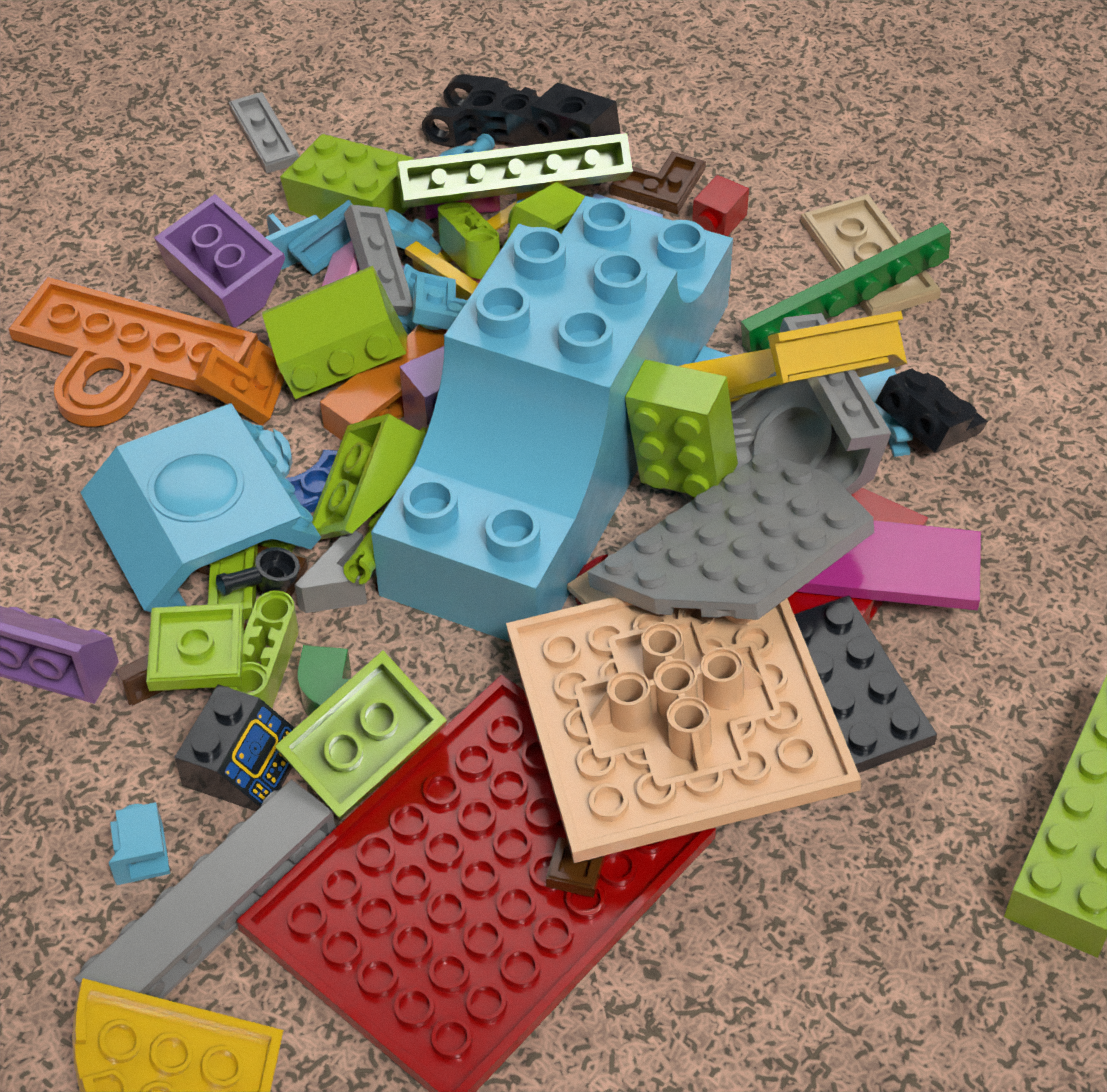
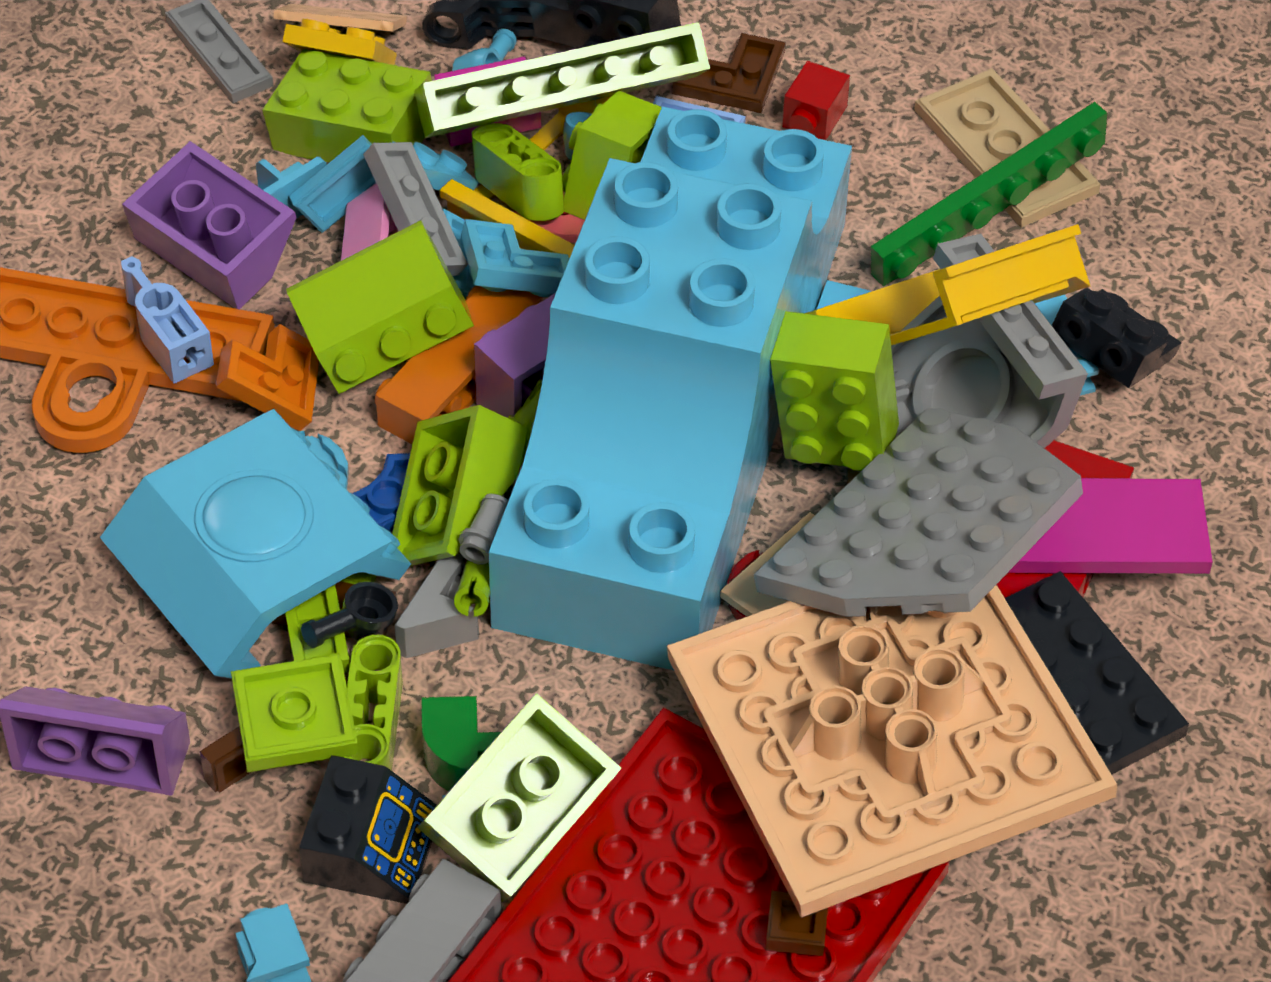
camera: 10 degrees left, 0 degrees up
(169, 332) = (167, 324): none -> light blue piece
(358, 114) = (341, 17): none -> light nougat piece
(359, 132) = (355, 44): none -> yellow plate
(368, 519) = (478, 538): none -> light grey pin

